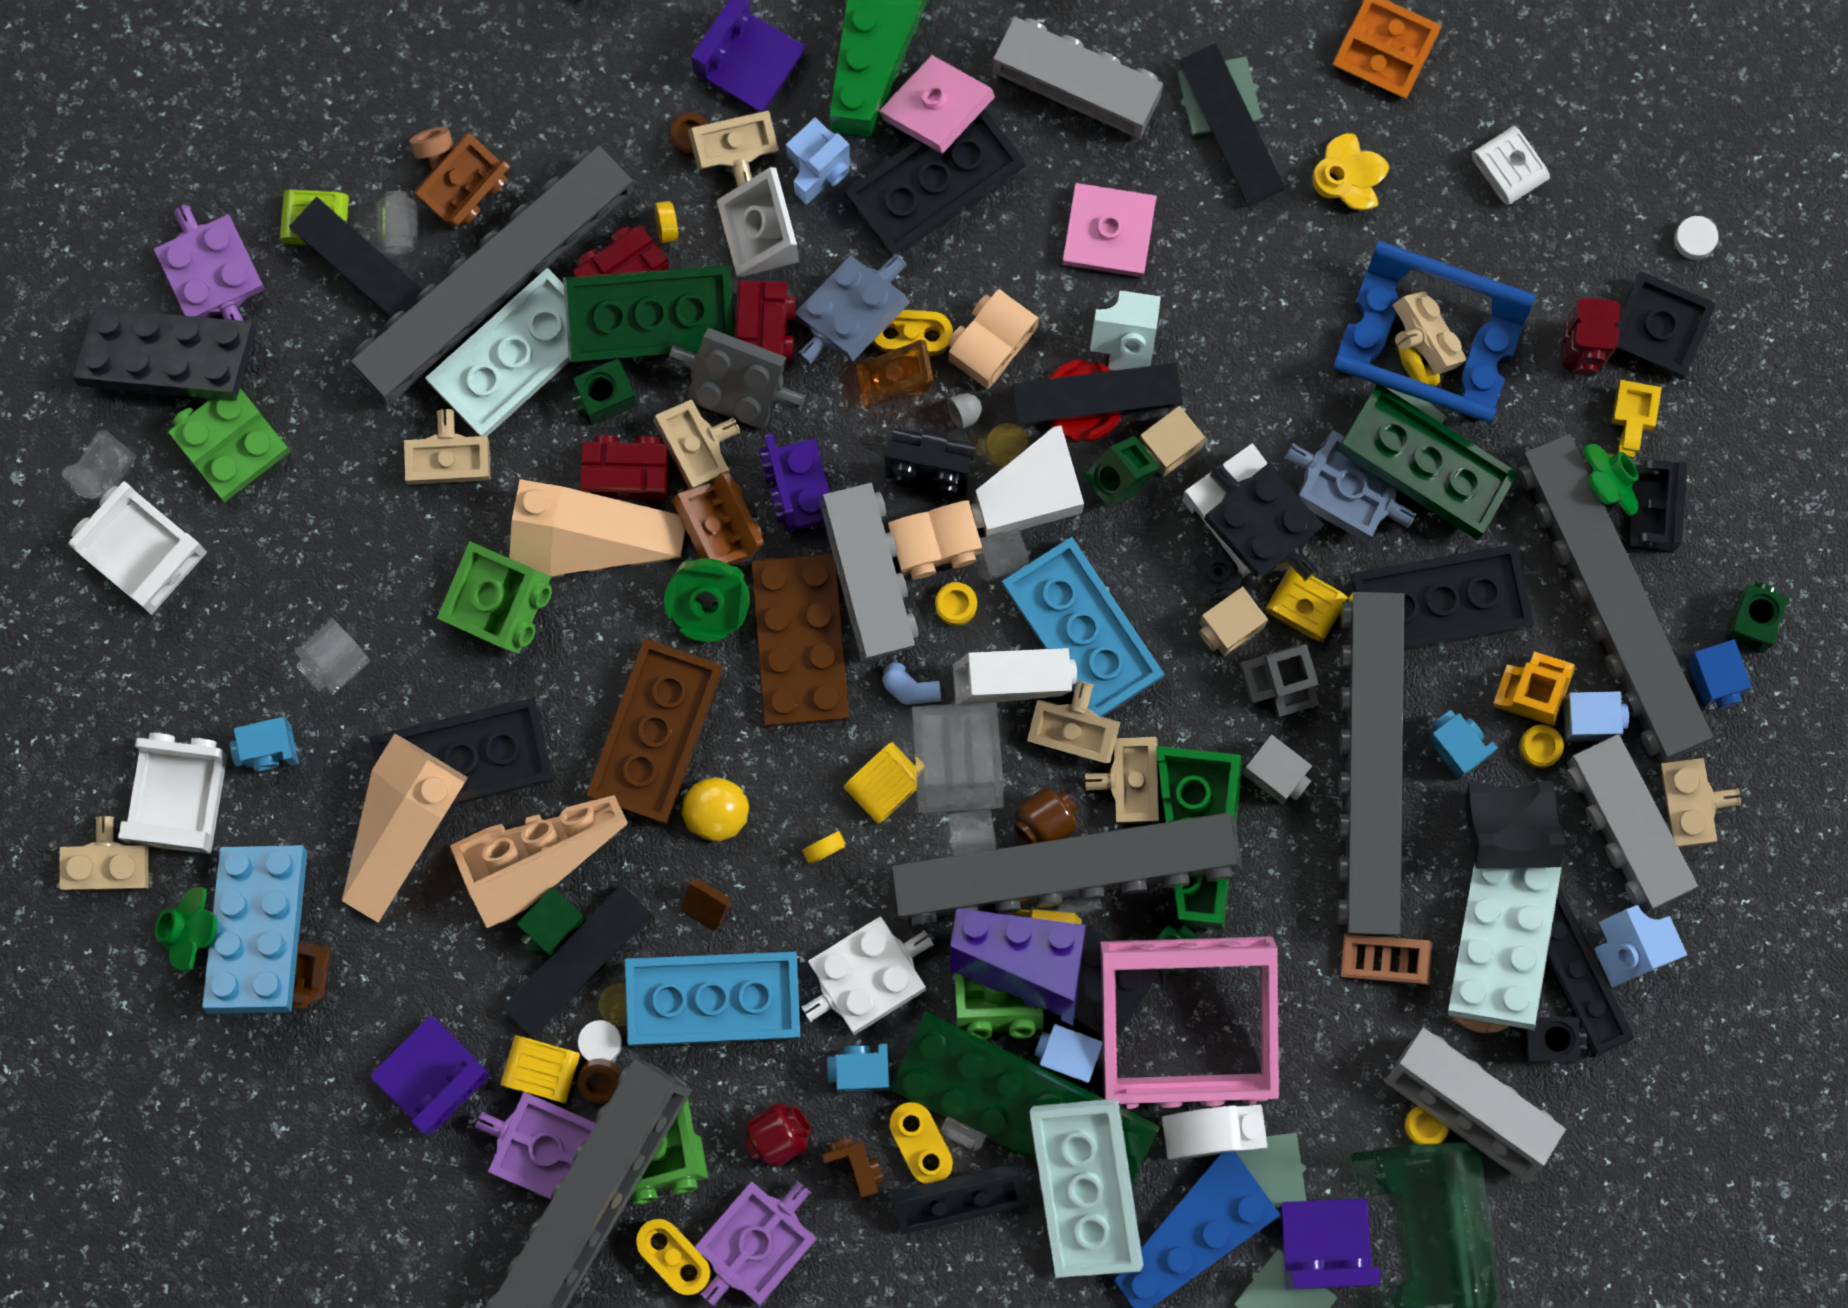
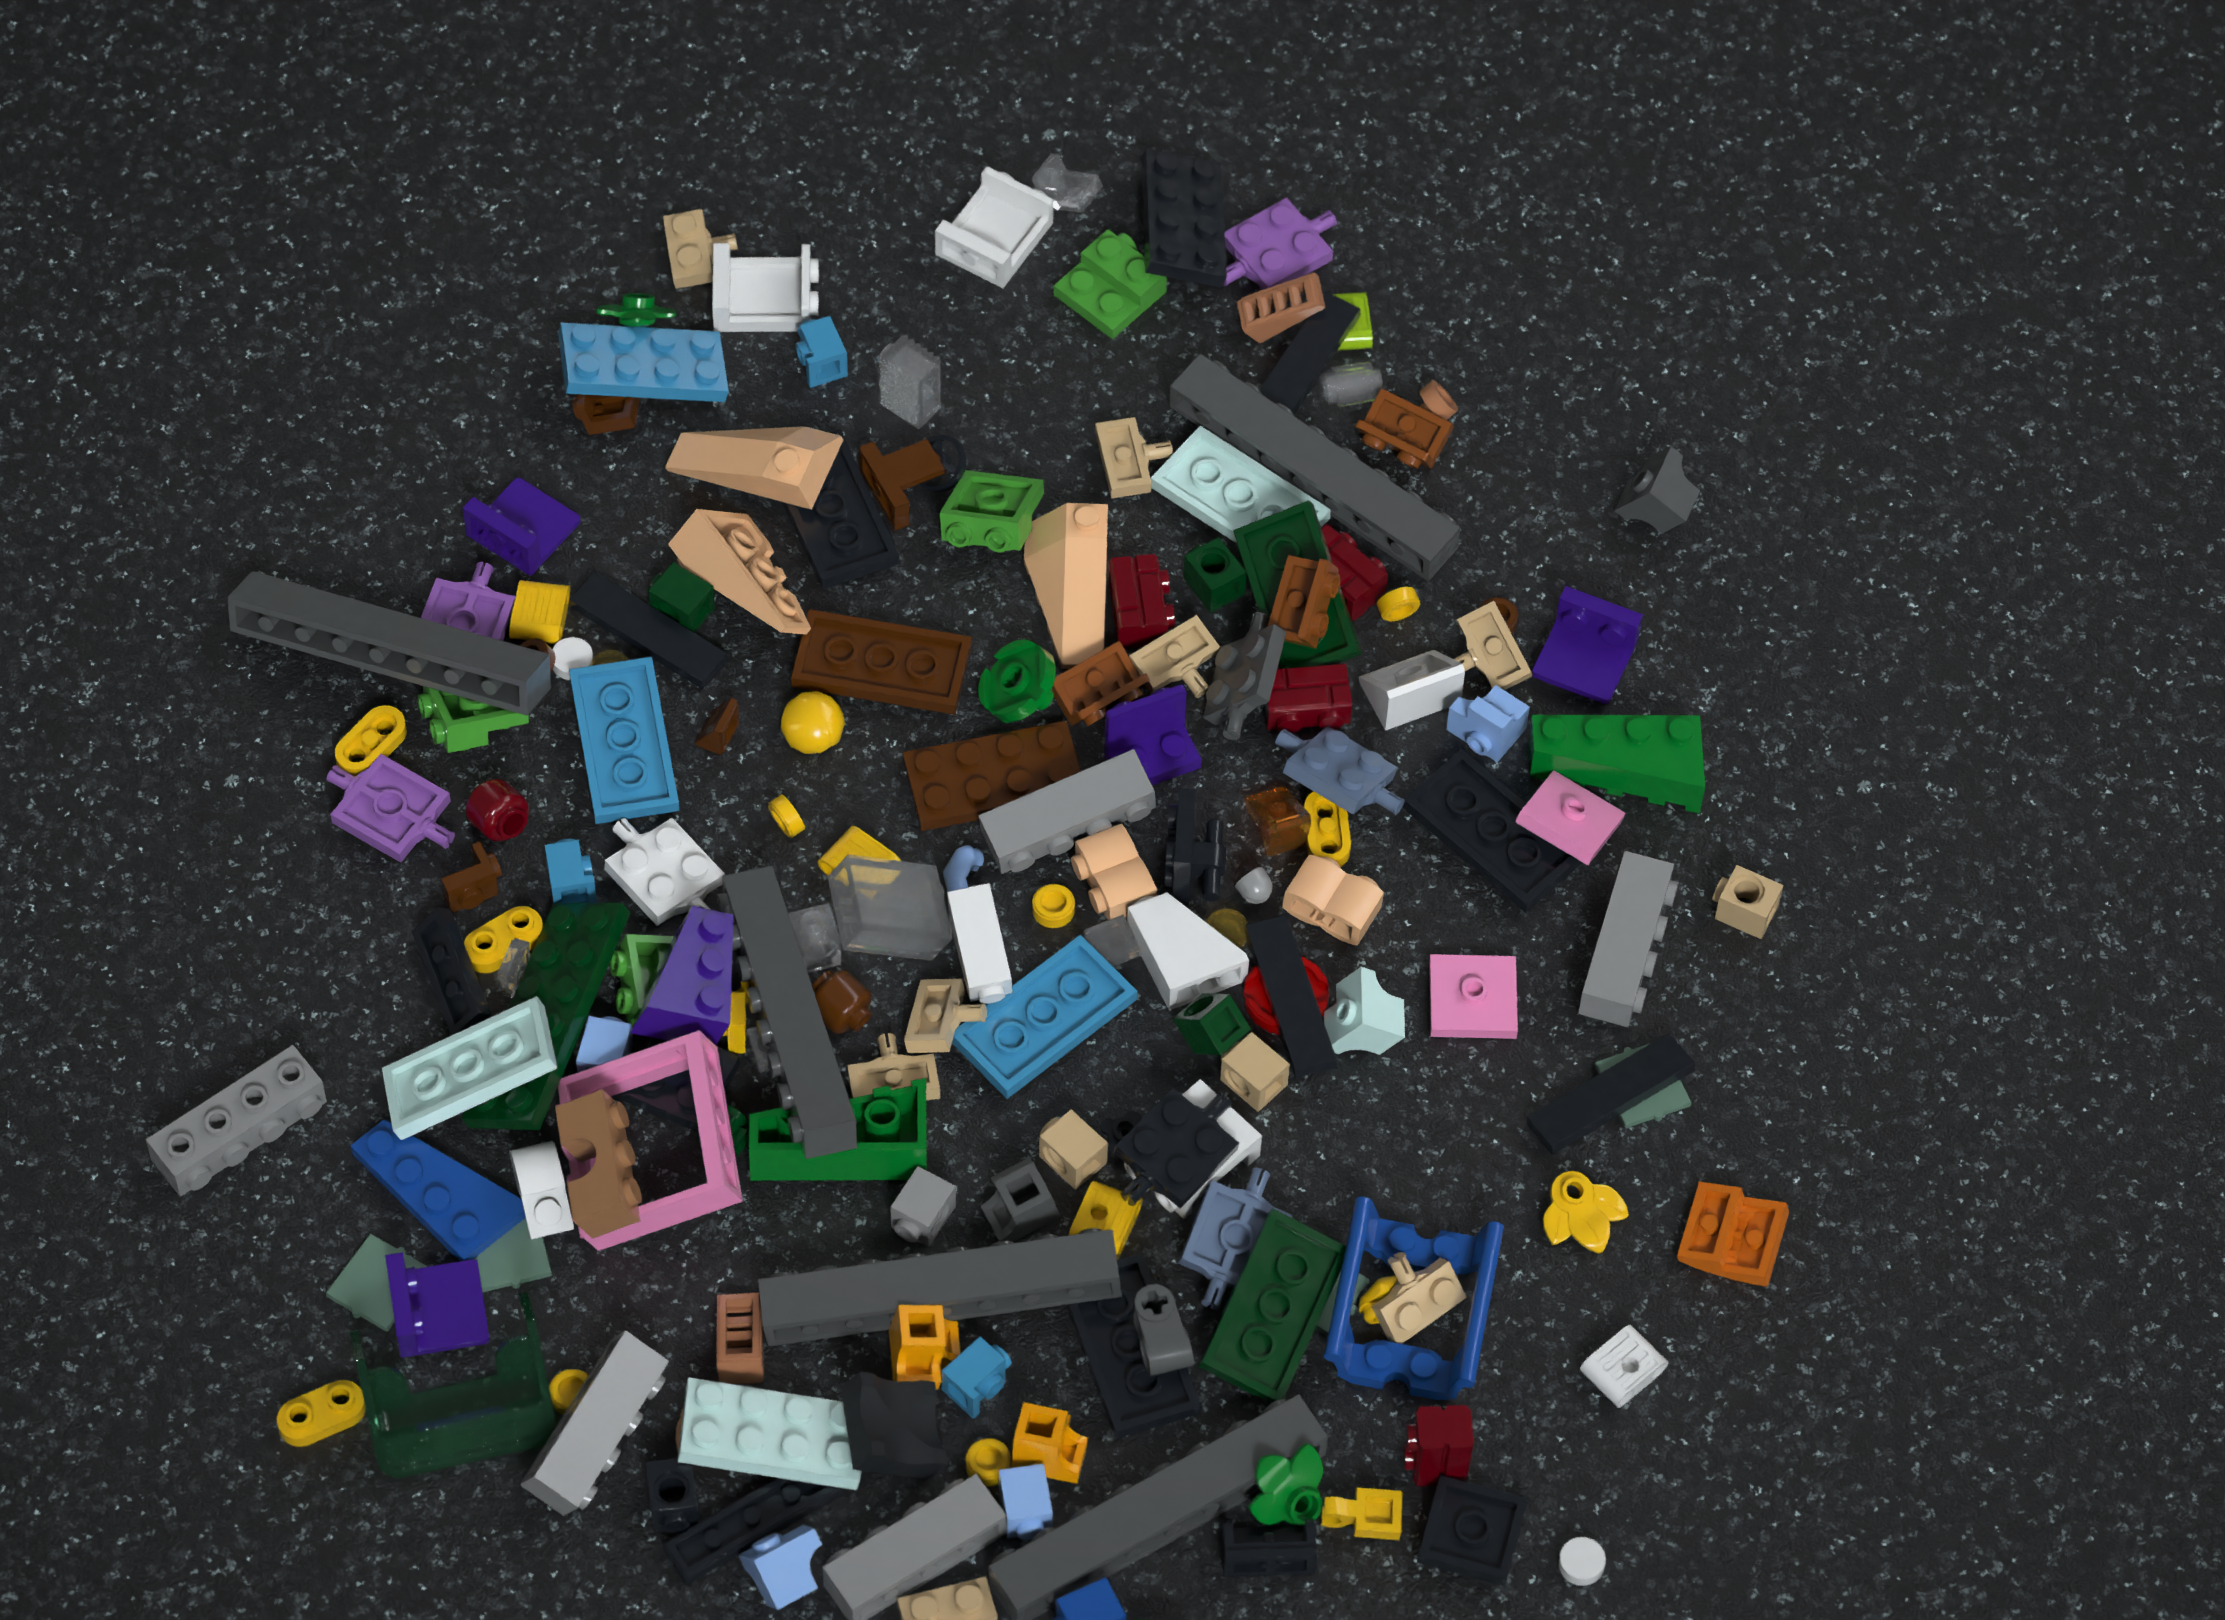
camera: 80 degrees right, 20 degrees down
(296, 307) = (1257, 308): none -> nougat slope
(436, 674) = (905, 468): none -> reddish brown piece
(674, 305) = (1304, 599): none -> dark orange bracket
(1187, 1063) = (608, 1192): none -> medium nougat arch
(1430, 791) = (922, 1343): none -> light orange brick
(1456, 565) = (1161, 1336): none -> dark grey piece

